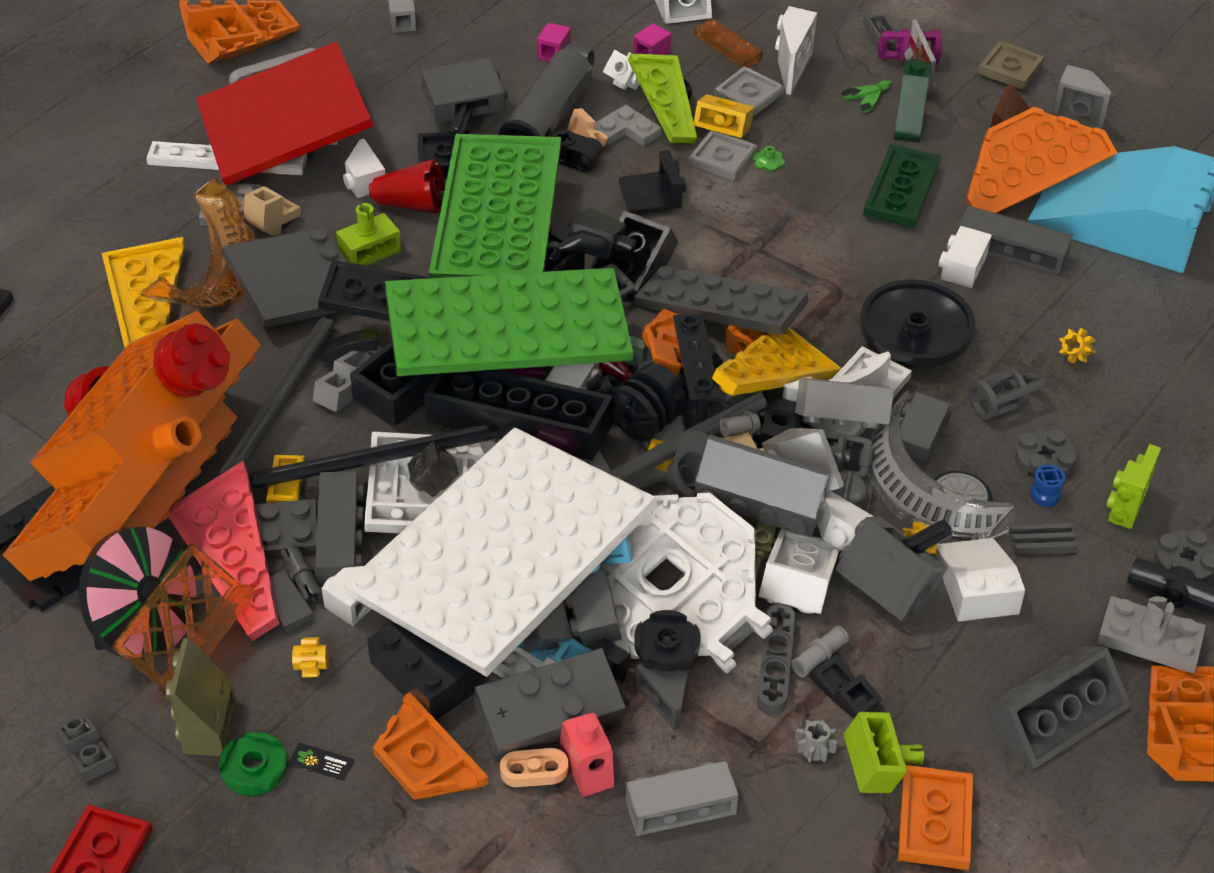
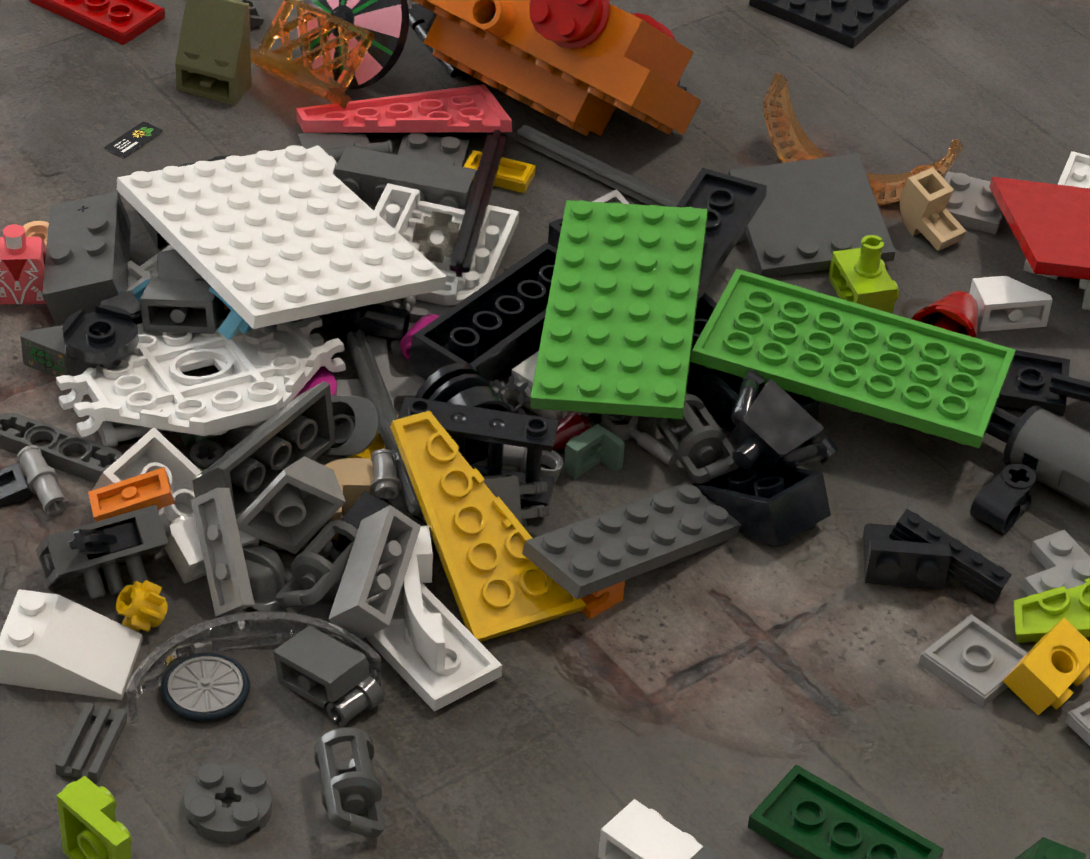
camera: 105 degrees right, 5 degrees down
(130, 273) = (839, 119): yellow wing -> none
(258, 779) = (153, 99): green tile -> none
(310, 657) = (245, 136): yellow gear -> none
(425, 755) = (83, 180): orange wing -> none
(584, 125) = (1051, 518): light nougat plate -> none
(648, 165) = (965, 564): none -> black piece
(662, 341) = (581, 462): orange plate -> none
(768, 159) = (958, 713): bright green plant -> none
(843, 556) = (131, 495): none -> orange plate
(864, 491) = (222, 552): none -> light grey plate
(917, 322) = (519, 731): black dish -> none
(1047, 485) = (166, 769): blue wheel -> none

